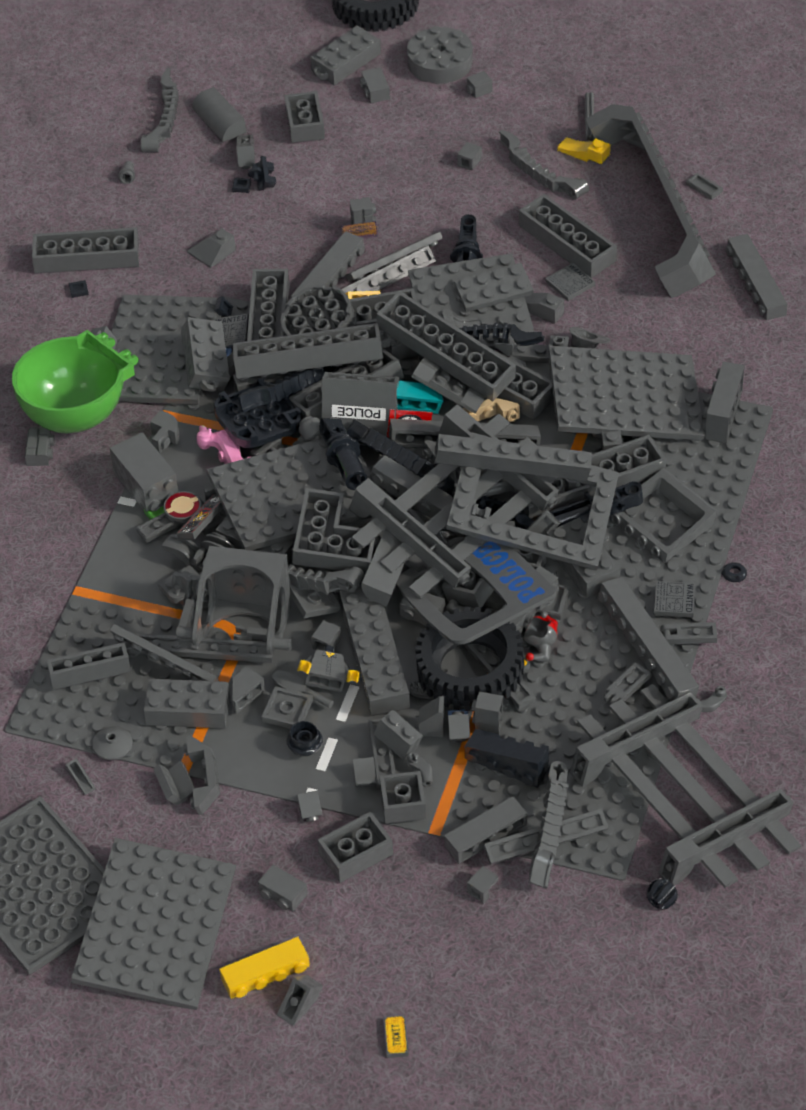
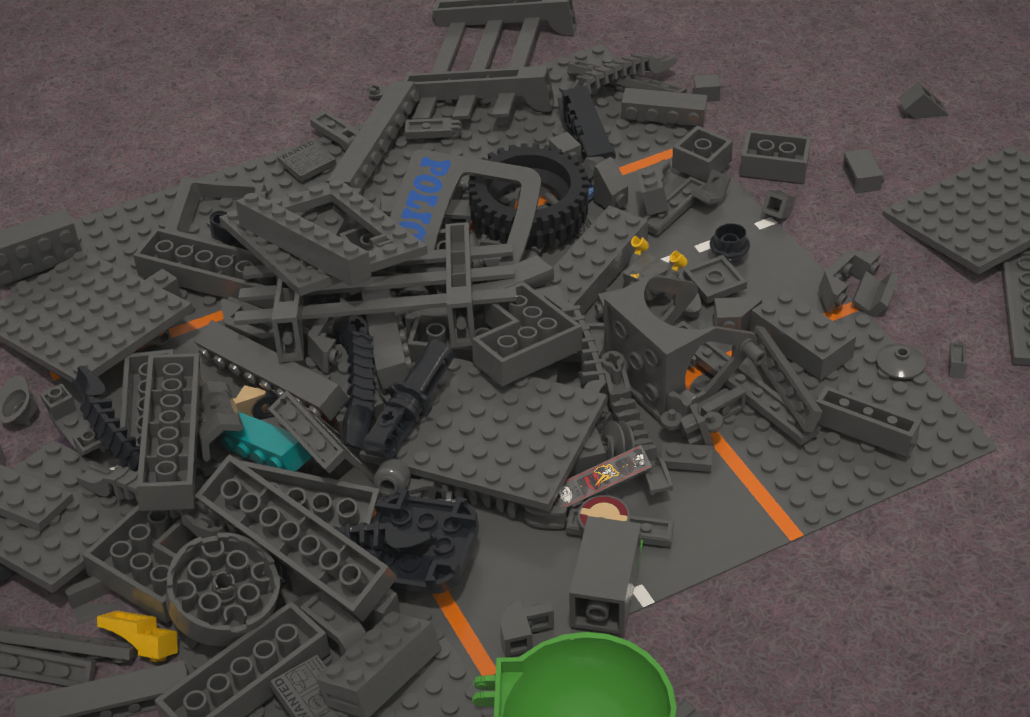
camera: 135 degrees left, 5 degrees down
(228, 450) = (490, 540): bright pink animal -> none
(264, 968) = (931, 134): yellow brick -> none
(396, 1036) = (873, 56): tile -> none
(662, 894) = (592, 15): black piece -> none
(734, 577) = (239, 158): black piece -> none

